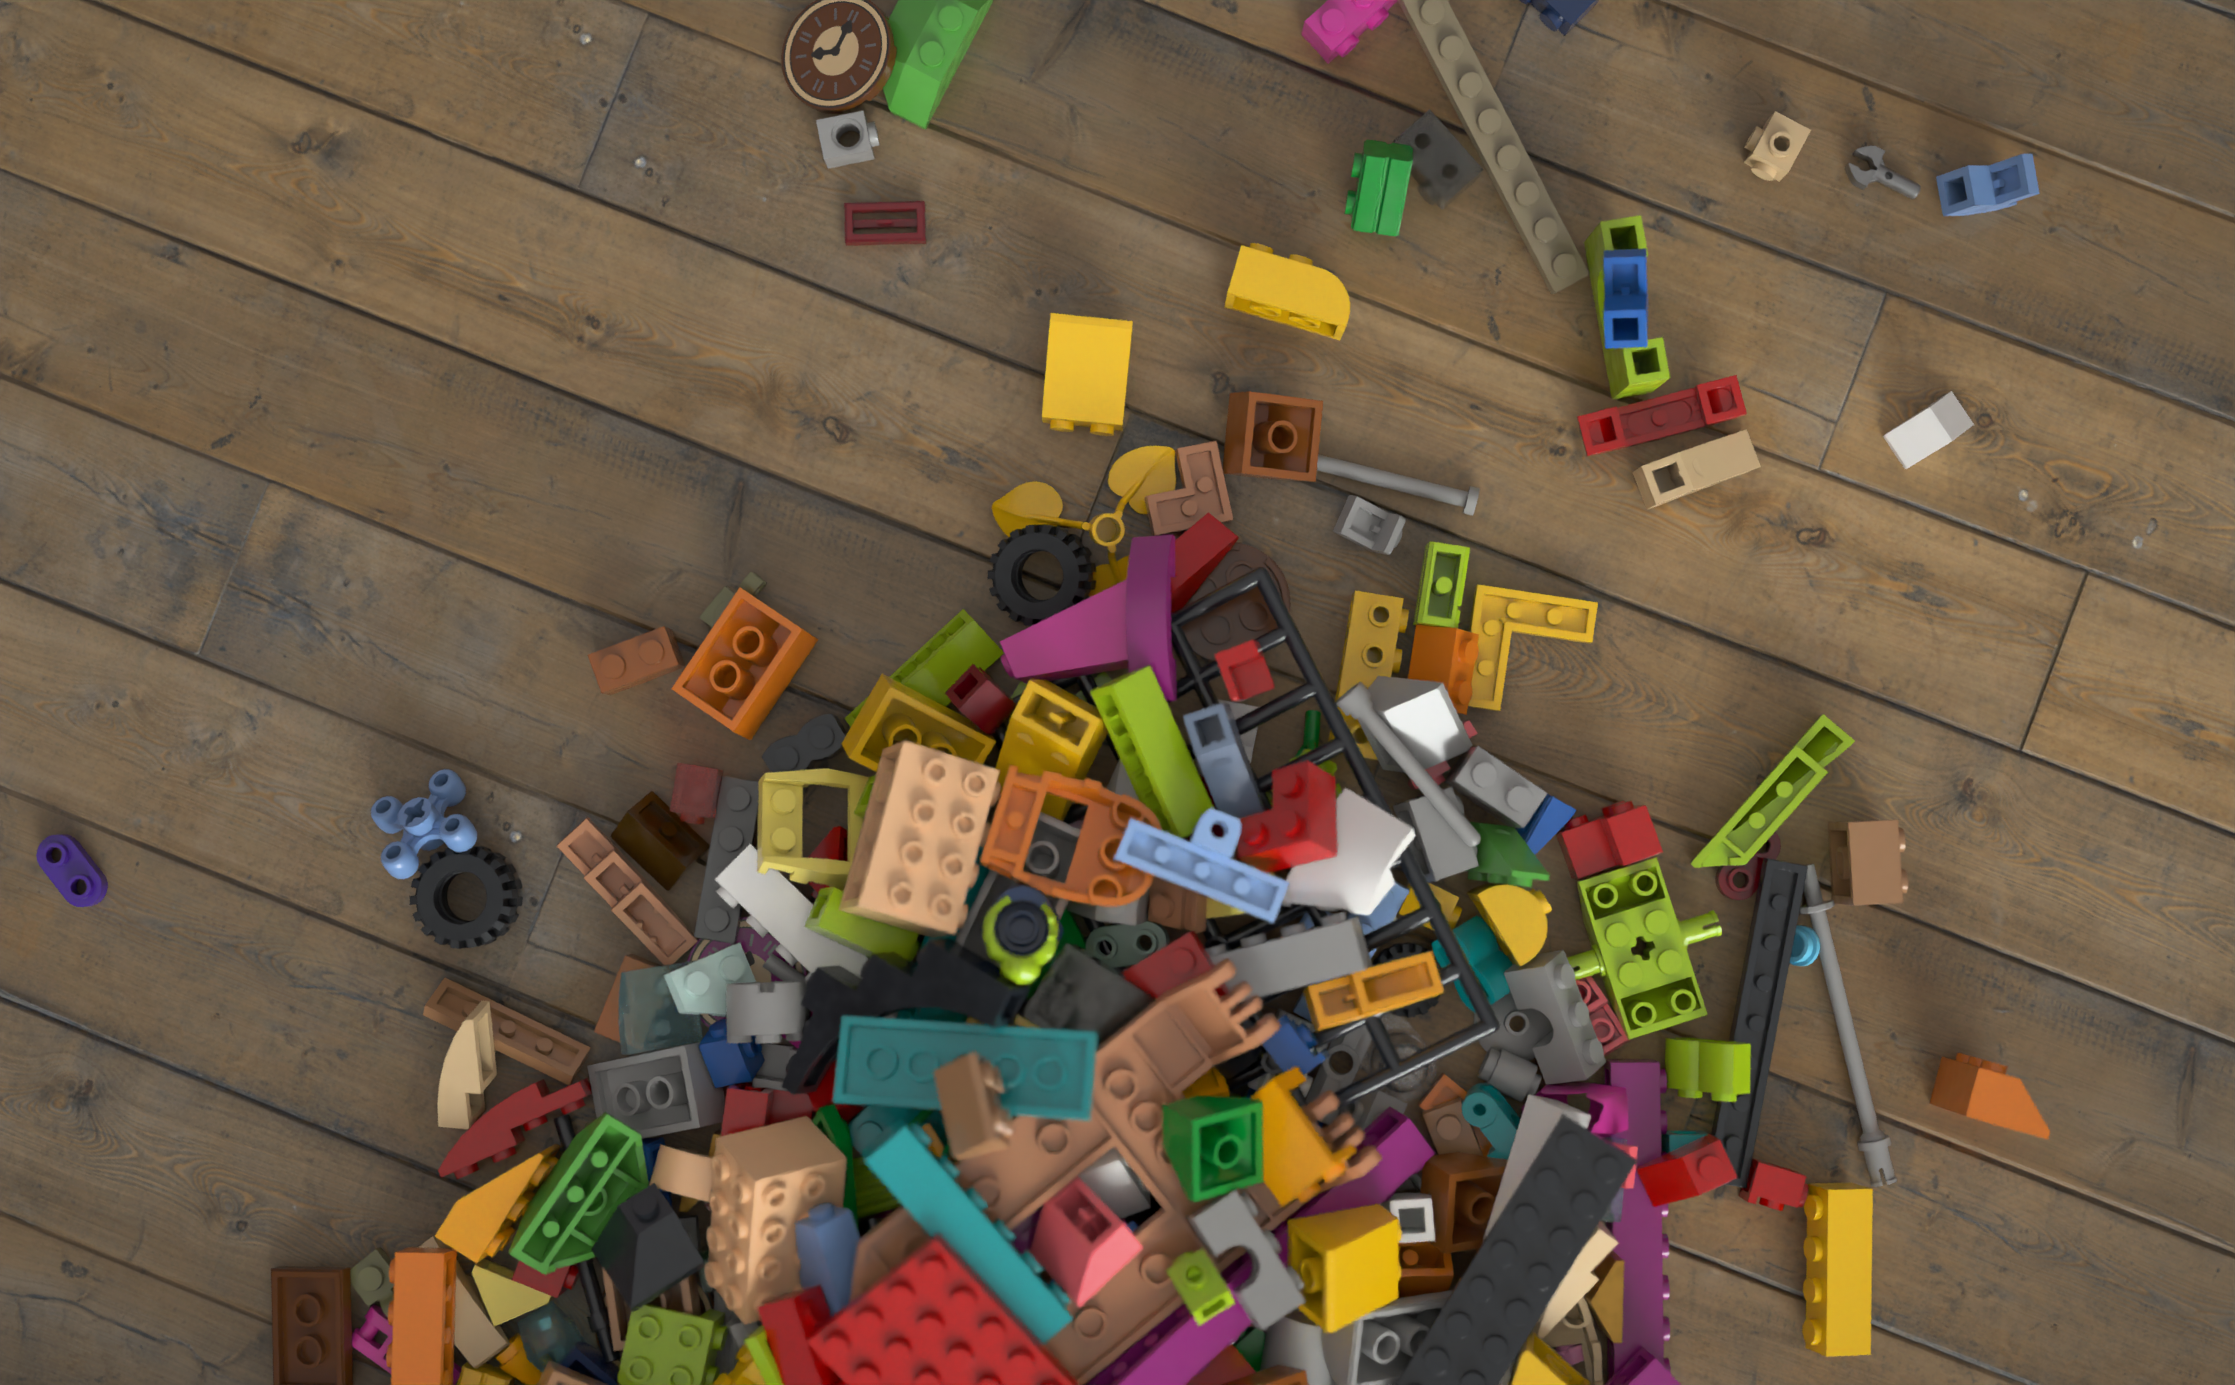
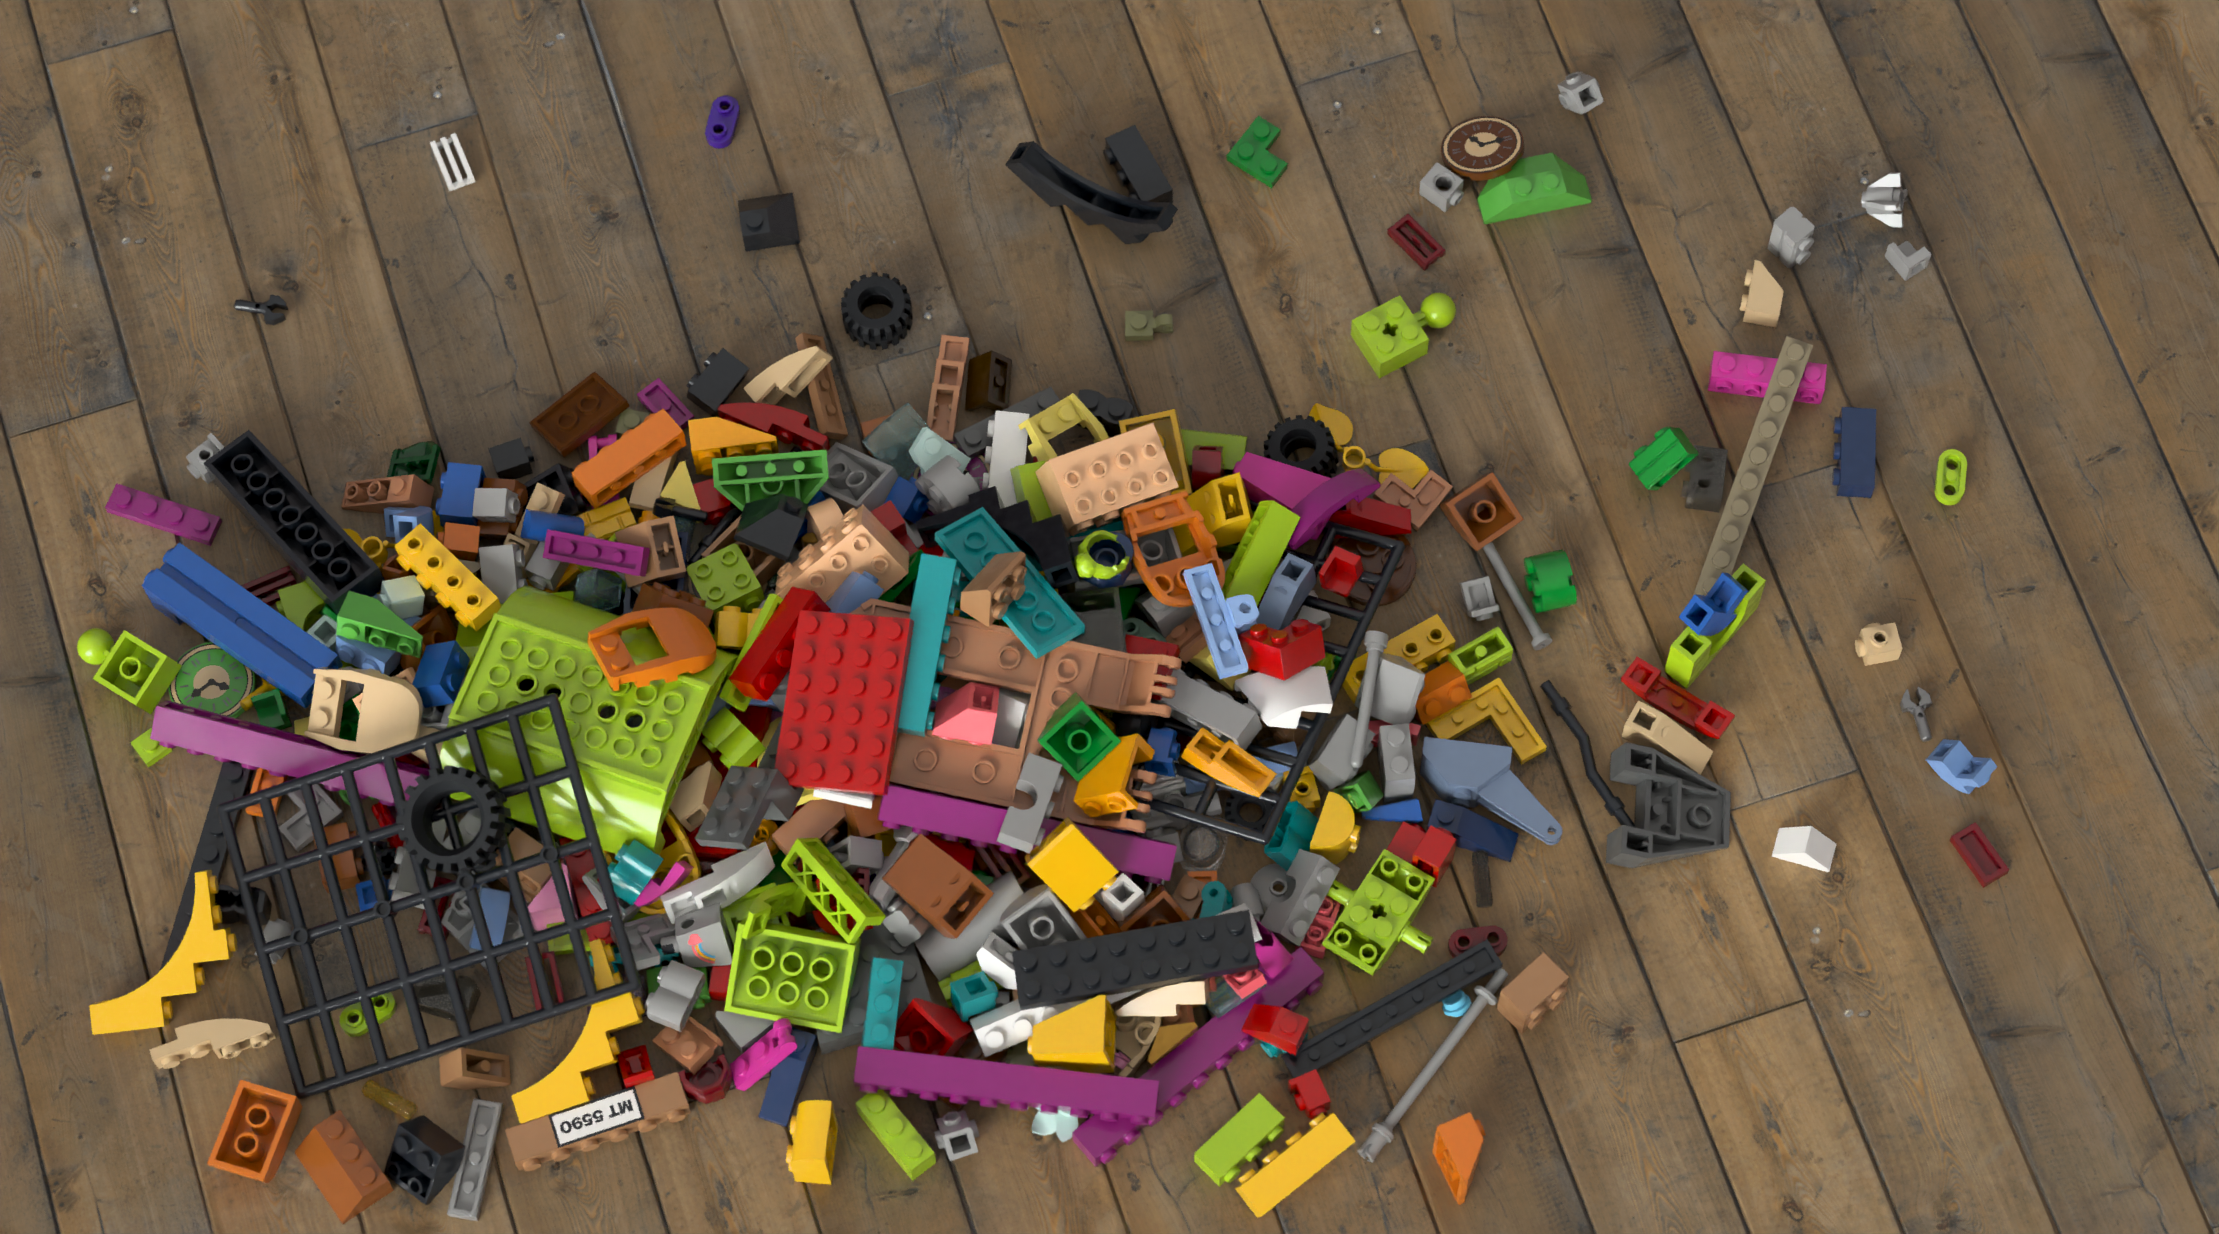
camera: 50 degrees right, 20 degrees down
(244, 922) = (768, 222): none -> black slope
(384, 1225) = (659, 396): none -> magenta plate
(403, 1147) = (717, 381): none -> black brick
(423, 824) = (897, 260): medium blue gear -> none
(520, 1335) = (666, 507): none -> black bar
(530, 547) = (1058, 185): none -> black arch
(537, 458) = (1137, 166): none -> black brick
(626, 313) = (1252, 153): none -> green plate
(636, 660) = (1074, 297): dark orange brick -> none
(696, 792) = (1031, 377): clear red brick -> none
(744, 664) = (1121, 349): orange slope -> none
(993, 278) = (1394, 336): none -> lime brick
(1086, 373) = (1429, 393): yellow slope -> none
(1200, 1285) = (994, 791): lime brick -> none
(1288, 291) = (1562, 454): yellow brick -> none
(1419, 434) = (1550, 581): none -> green brick
(1588, 701) = (1481, 775): none -> sand blue slope
(1623, 765) = (1473, 830): none -> dark blue slope
(1683, 797) = (1482, 879): none -> clear smoke axle
(1708, 1067) = (1344, 999): lime brick -> none
(1716, 586) = (1562, 708): none -> black bar
(1762, 1301) = (1240, 1140): none -> lime brick
(1775, 796) = (1524, 917): lime wedge -> none
(1782, 532) = (1674, 810): none -> dark grey wedge
(2086, 253) = (1979, 854): none -> dark red tile

